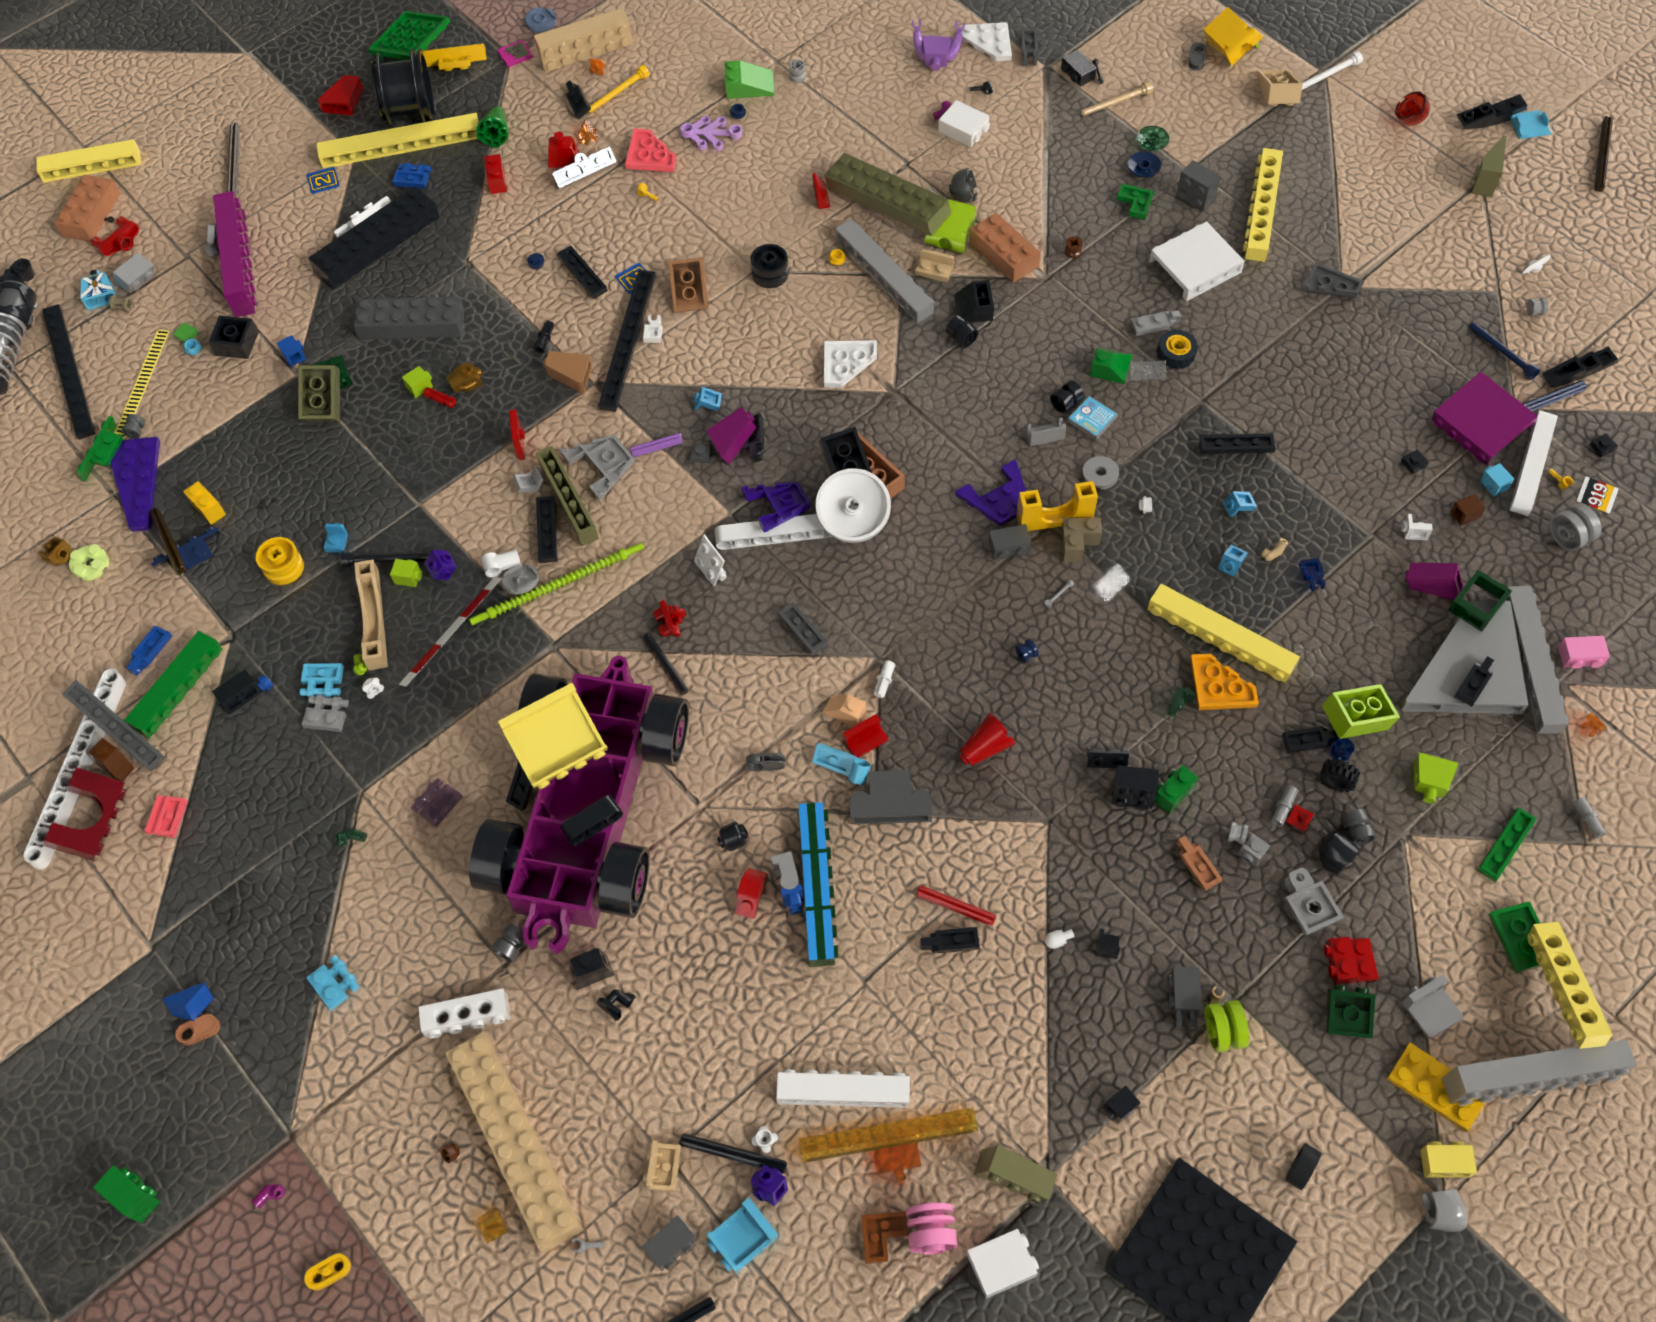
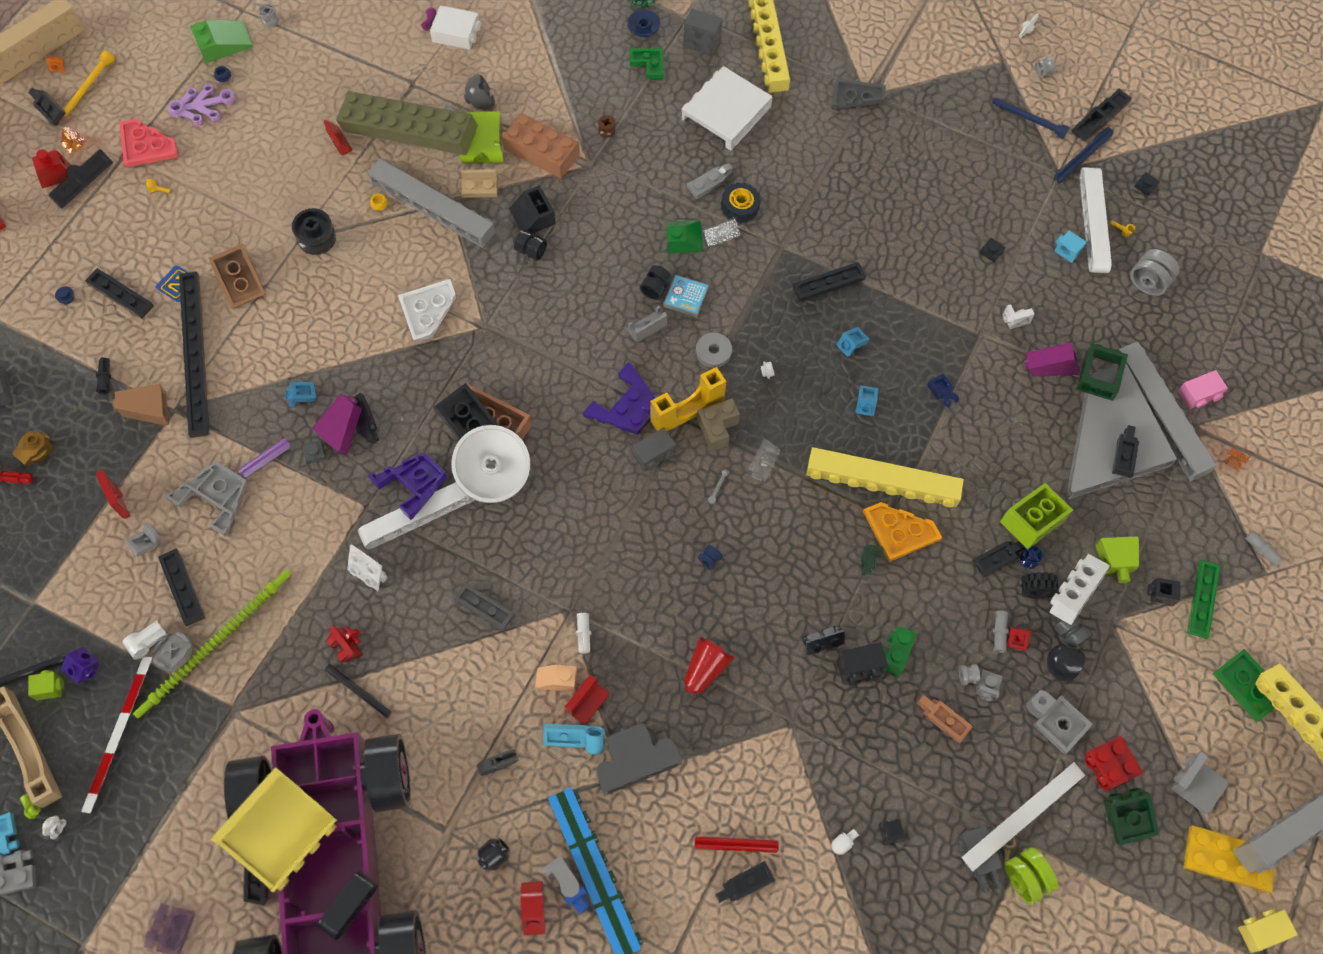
camera: 25 degrees left, 5 degrees up
(567, 496) = (190, 544): olive brick -> none
(653, 330) = (218, 335): white plate -> none
(1241, 973) = (1022, 817): none -> white sticker
(1277, 551) = (904, 376): tan arm -> none
(1377, 789) = (1079, 589): none -> white brick
(1467, 822) = (1169, 588): none -> black brick
(1468, 509) = (1056, 283): reddish brown brick -> none
(1483, 417) = (1038, 190): magenta panel -> none
(1597, 494) = (1158, 233): sticker -> none

